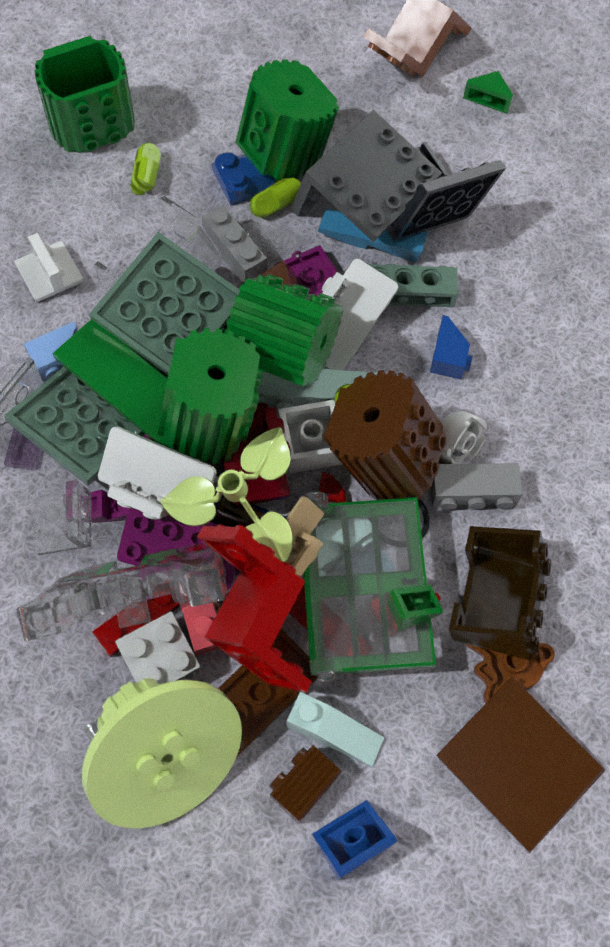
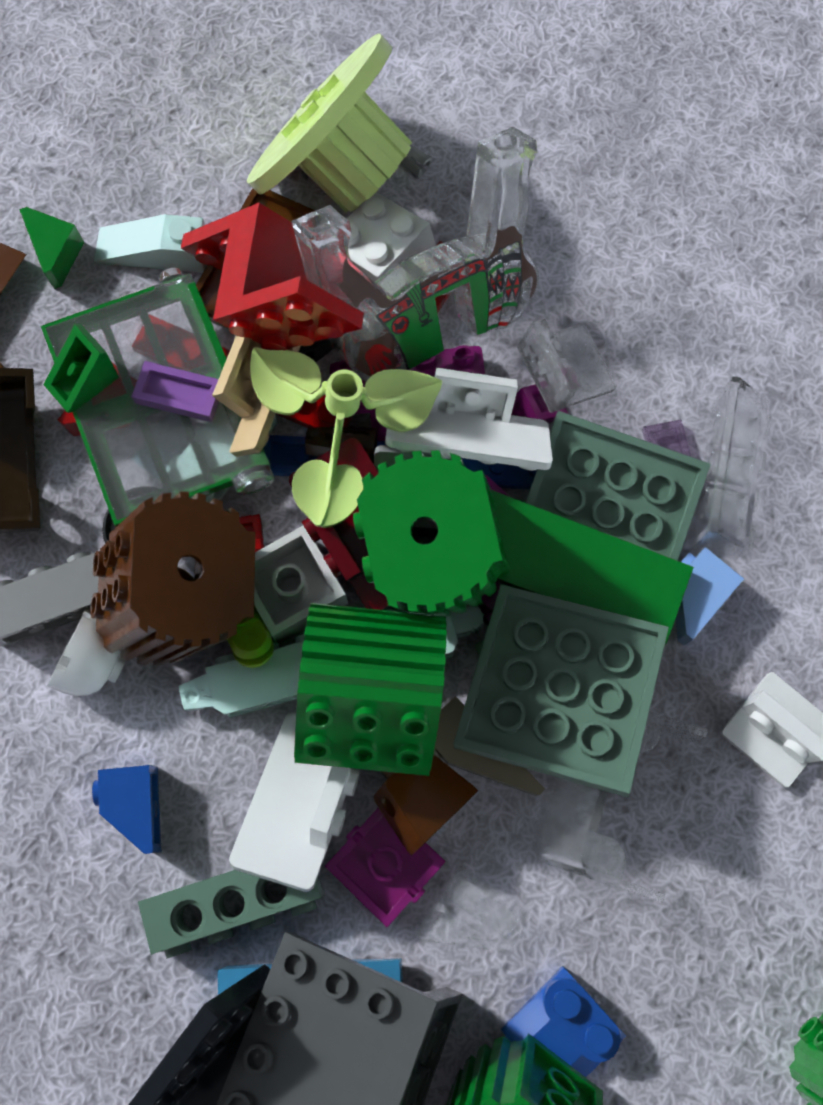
camera: 165 degrees right, 10 degrees up
(145, 169) = (727, 981): lime arm -> none
(234, 244) = (522, 873): light grey brick -> none
(274, 197) = (492, 1000): lime arm -> none
(304, 783) = (167, 178): reddish brown brick -> none
(347, 574) = (176, 391): none -> medium lavender tile
(353, 839) = (94, 141): blue slope -> none
(413, 757) = (54, 242): none -> green slope

